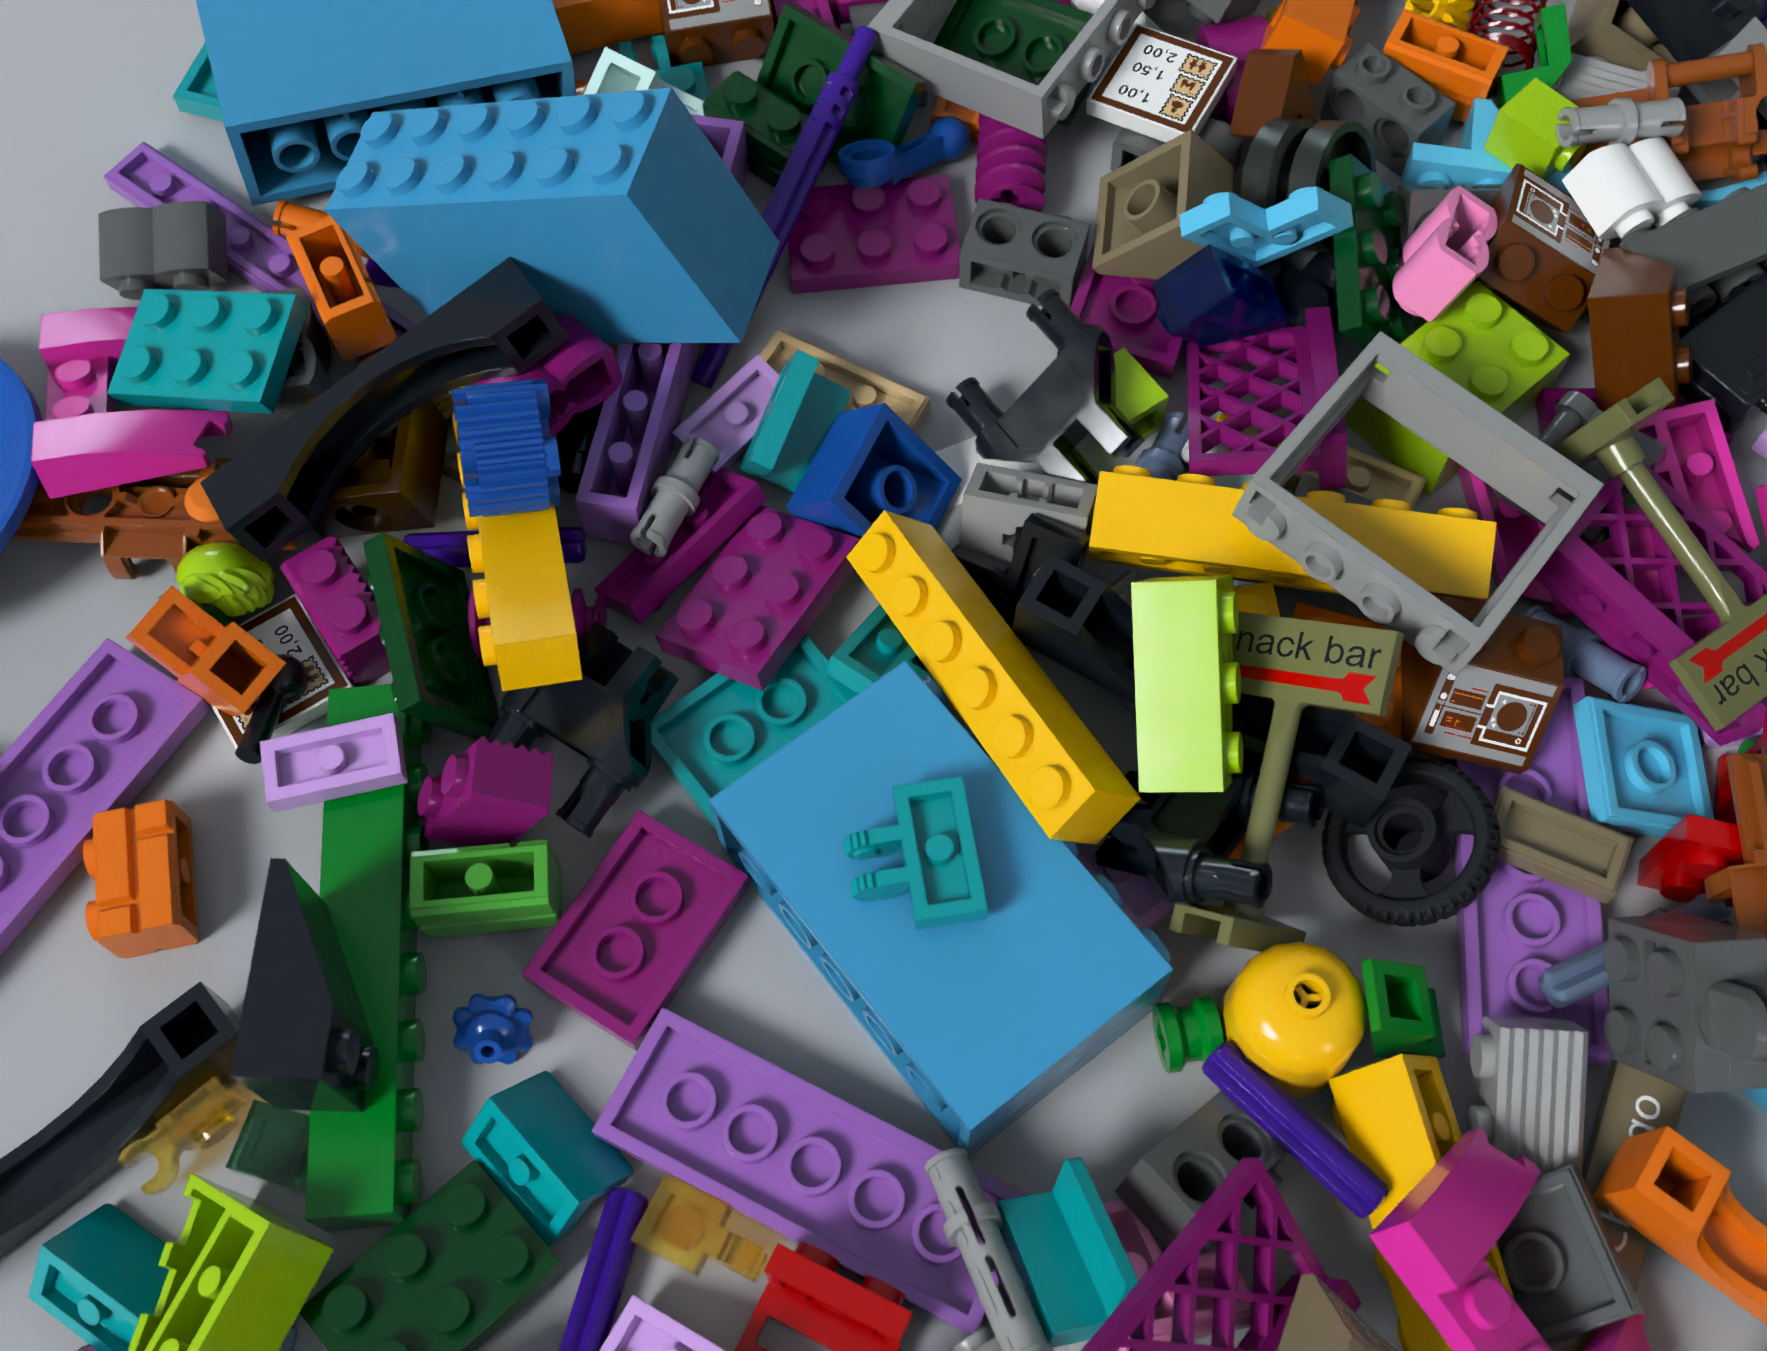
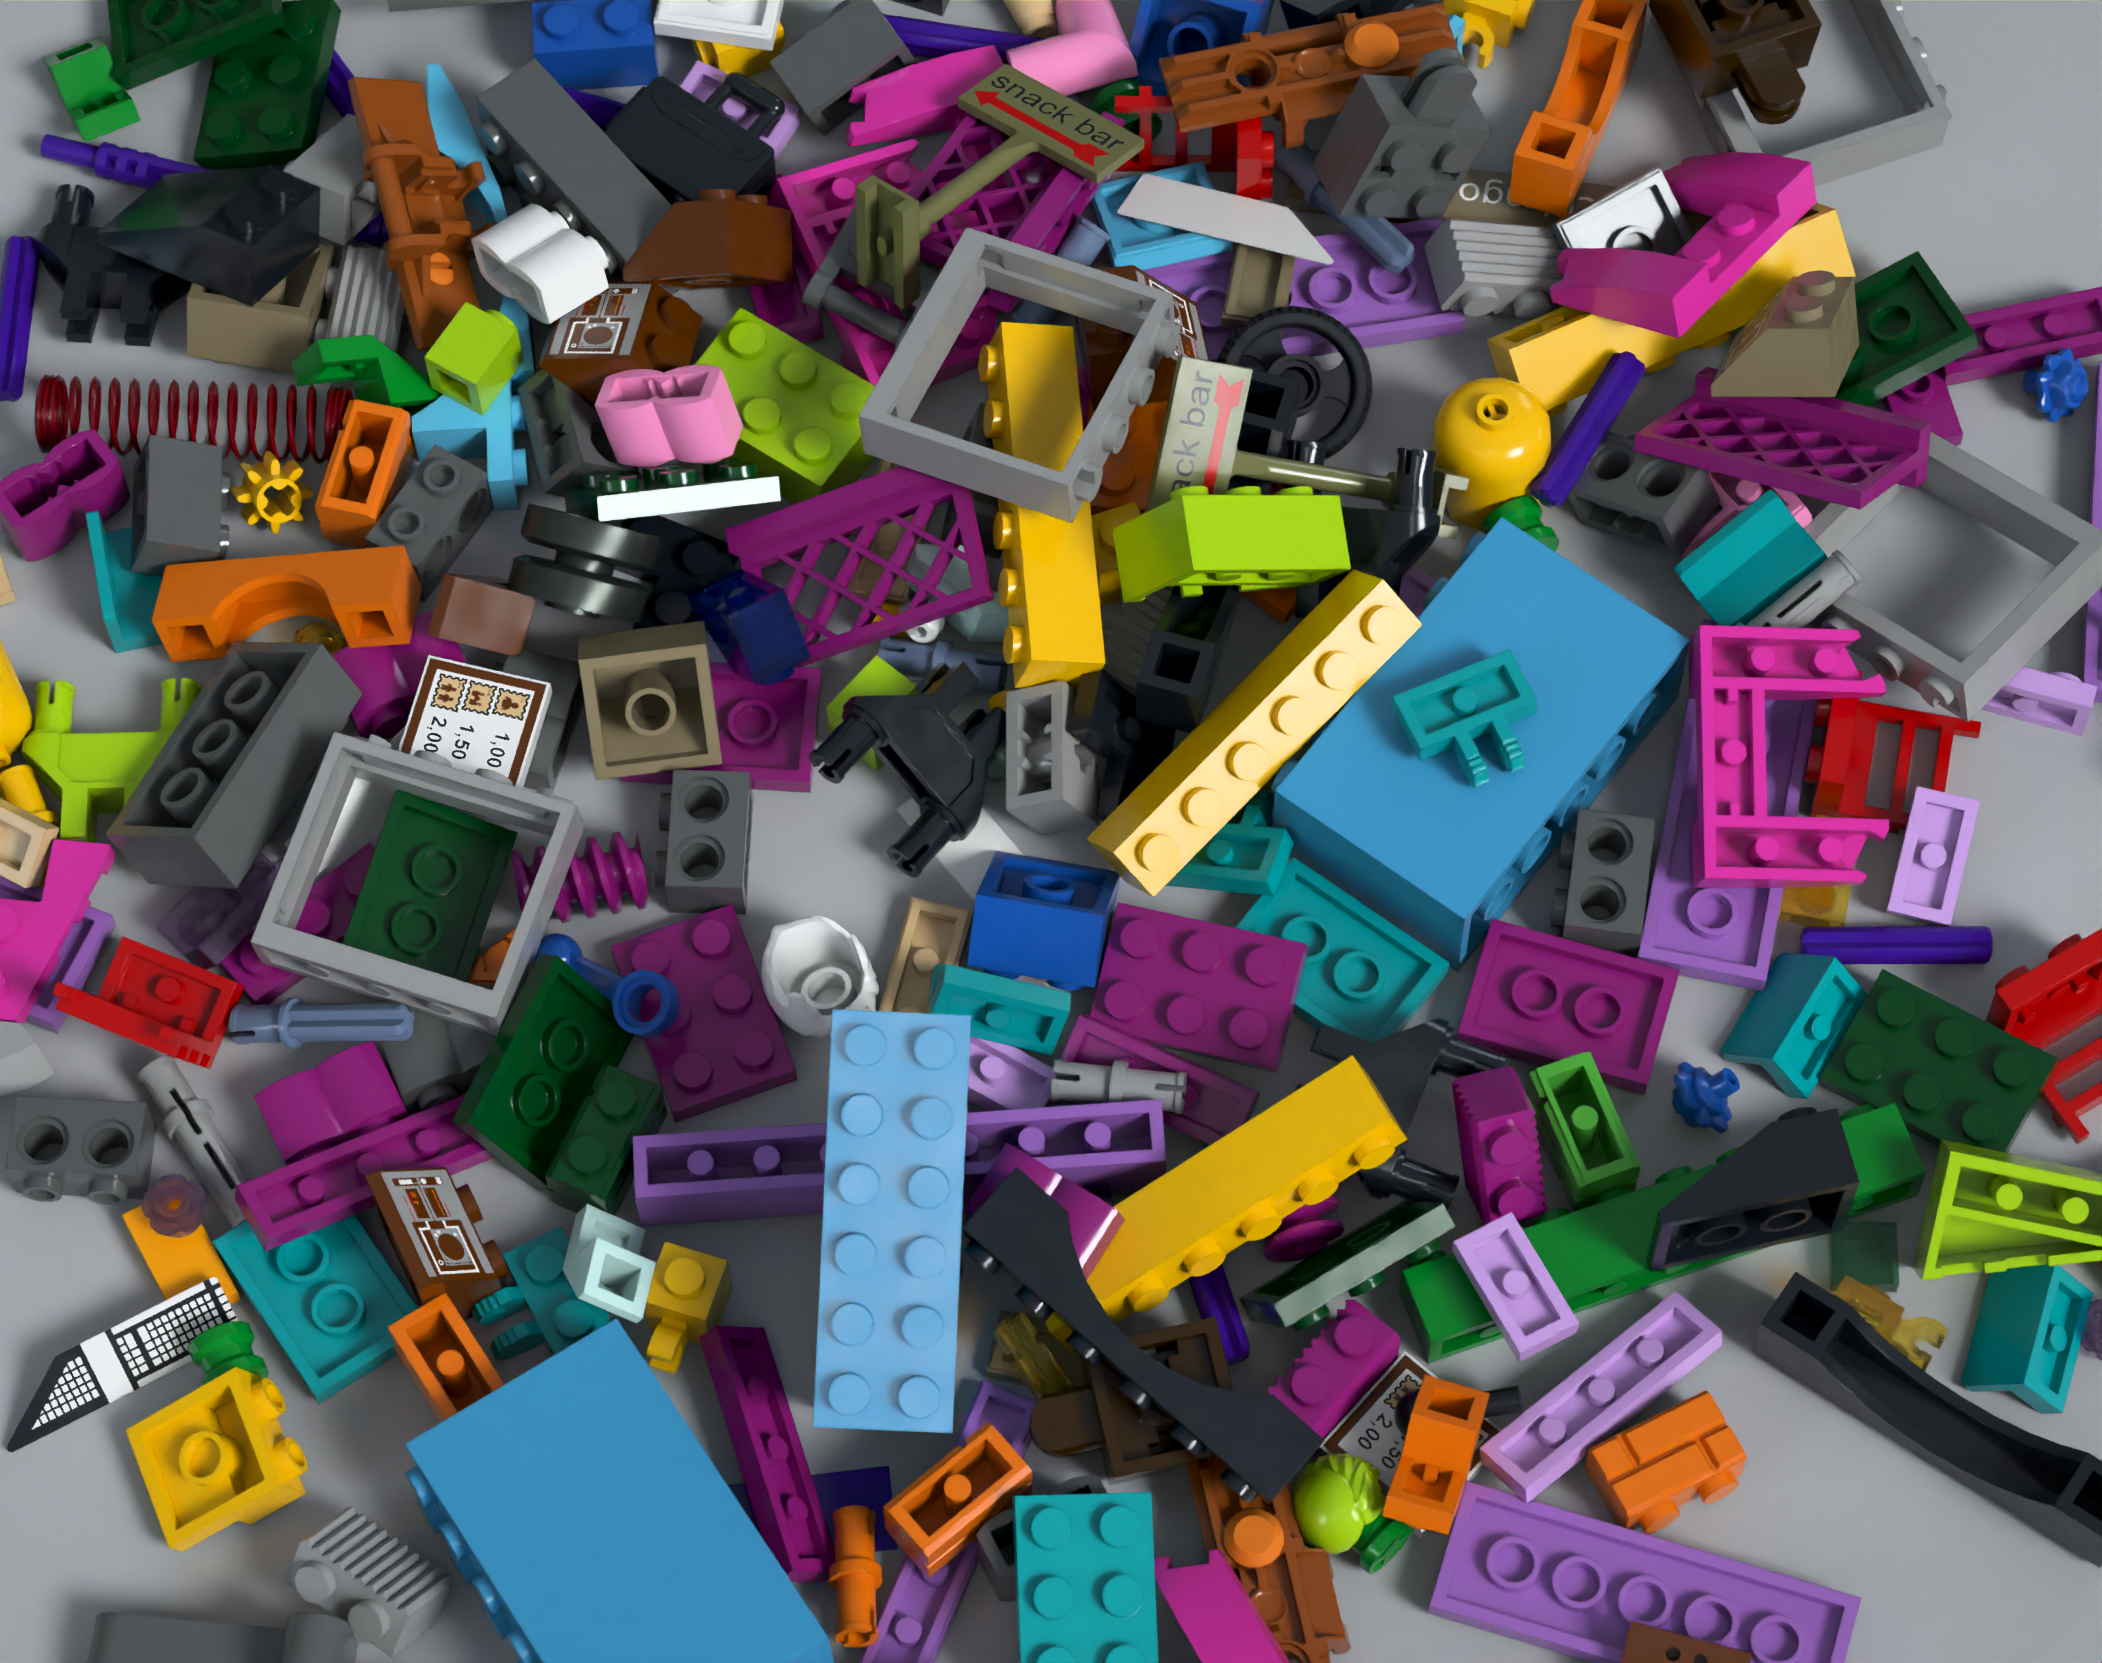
camera: 105 degrees left, 0 degrees up
(220, 823) = (1600, 1396): none -> lavender plate
(507, 447) = (1173, 1177): blue brick -> none
(746, 1013) = (1613, 885): none -> dark grey brick
(802, 171) = (672, 1065): dark purple axle -> none
(863, 302) = (816, 969): none -> white hair
(919, 1170) = (1730, 680): none -> dark pink wedge
(1269, 233) = (684, 587): medium azure plate -> none
(1401, 1010) = (1457, 362): green slope -> none
(1620, 121) = (482, 271): light grey pin -> none
(1628, 816) = (1222, 217): none -> white sticker

